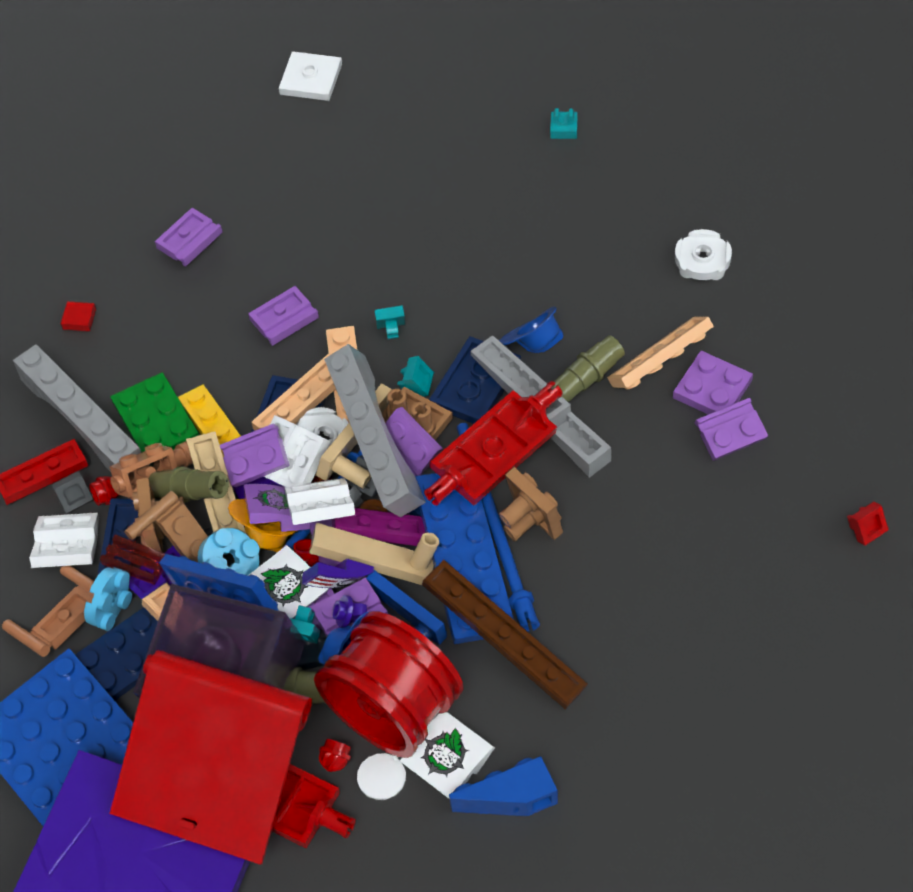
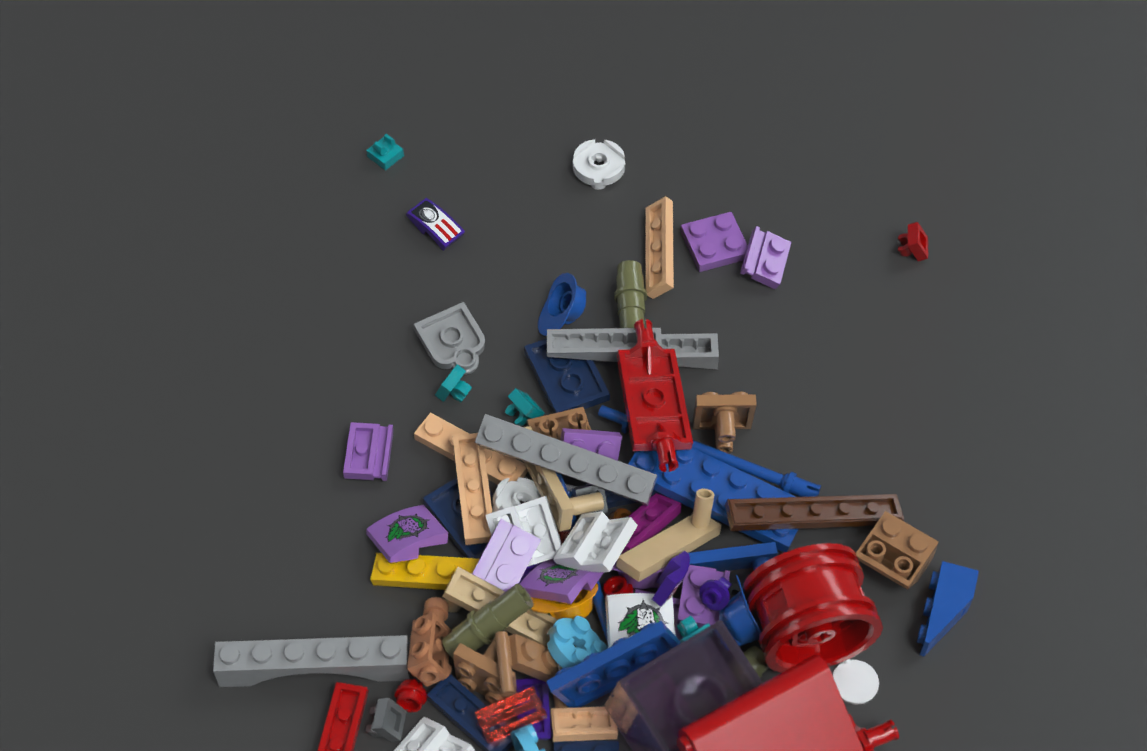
camera: 55 degrees left, 0 degrees up
(78, 316) = (202, 597): red tile -> none
(154, 413) = (368, 608): green plate -> none
(188, 236) = (212, 461): medium lavender plate -> none
(231, 386) = (405, 532): none -> medium lavender slope
(310, 76) = (141, 268): white plate -> none
(434, 290) = (452, 338): none -> light grey plate
(449, 754) = (898, 628): white slope -> none
(519, 719) = (897, 550): none -> medium nougat slope
(529, 202) = (436, 222): none -> slope

